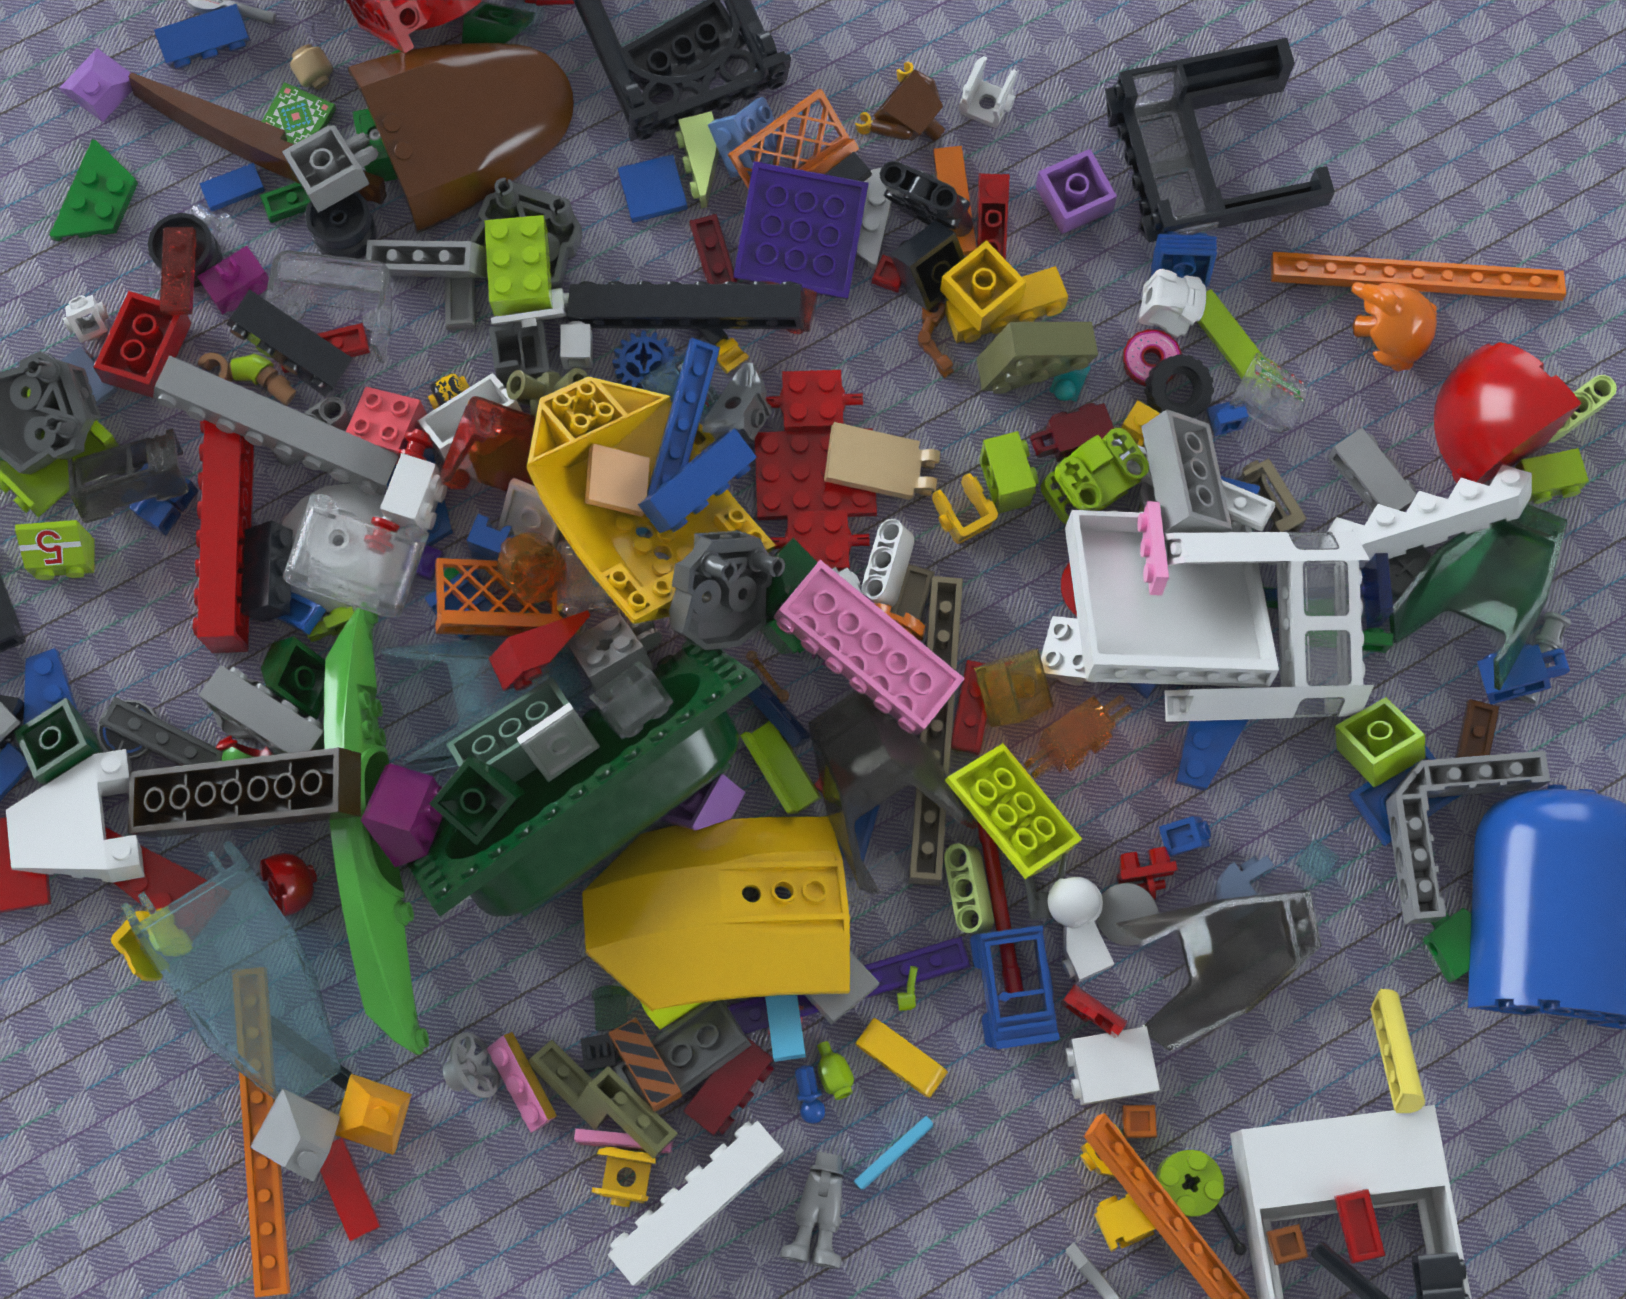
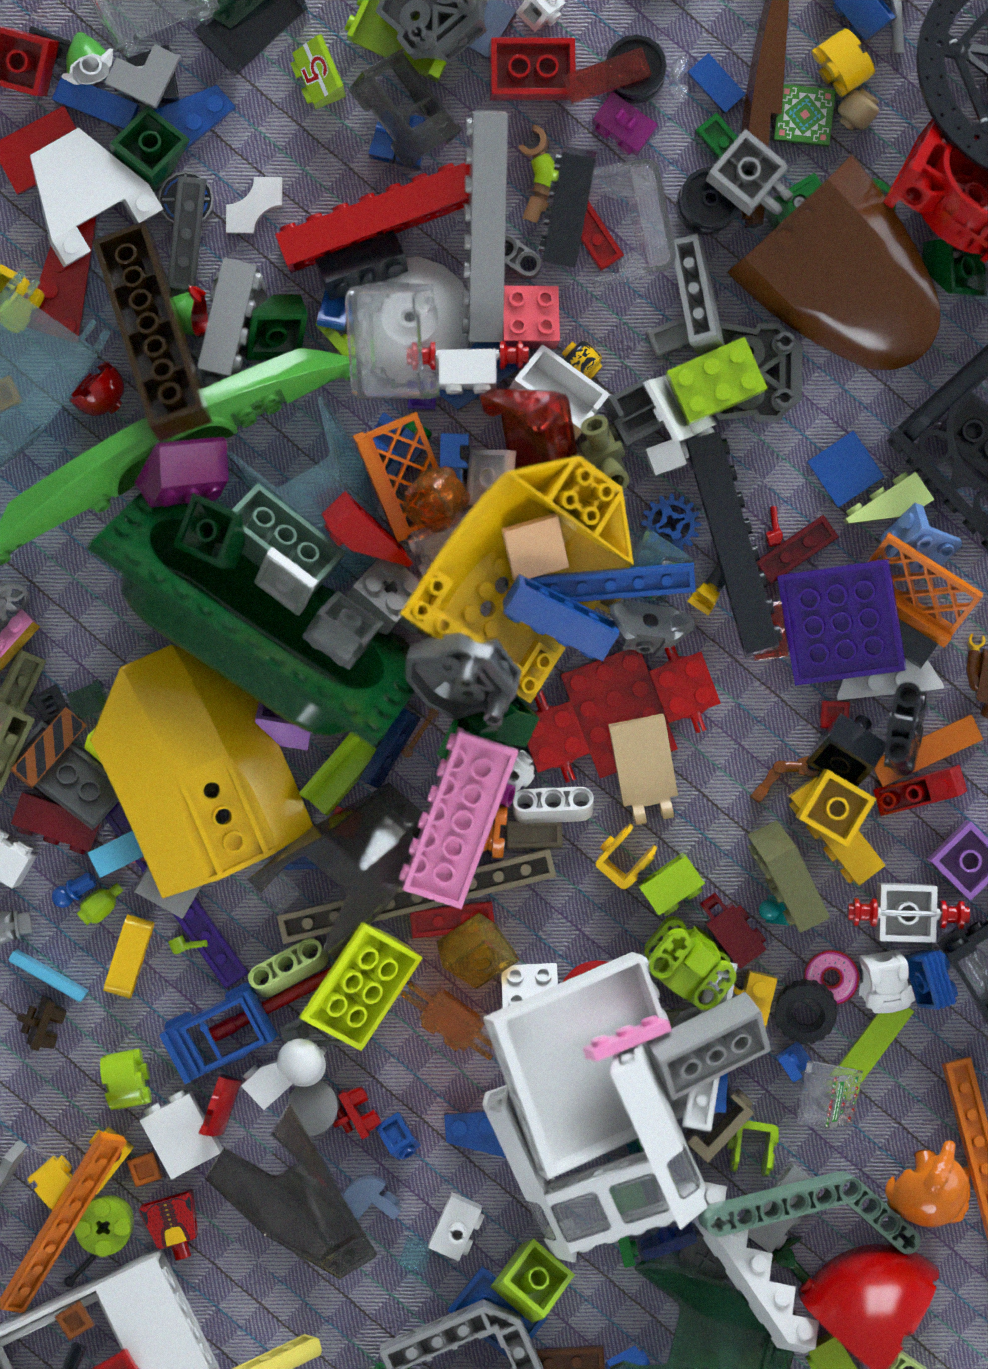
camera: 70 degrees right, 15 degrees up
(168, 675) = (245, 214): none -> white tile
(259, 61) = (843, 62): none -> yellow brick
(692, 269) = (775, 536): none -> red hand
(942, 1183) = (38, 1034): none -> dark brown hips
(1034, 1102) = (125, 1079): none -> lime brick
(1110, 259) = (907, 912): none -> white brick
(1207, 1107) = (172, 1222): none -> torso
(1299, 806) = (455, 1227): none -> white brick
(1316, 468) = (772, 1139): none -> lime piece
(1371, 437) = (806, 1204): none -> sand green beam
(1430, 481) = (786, 1258): none -> dark green plant

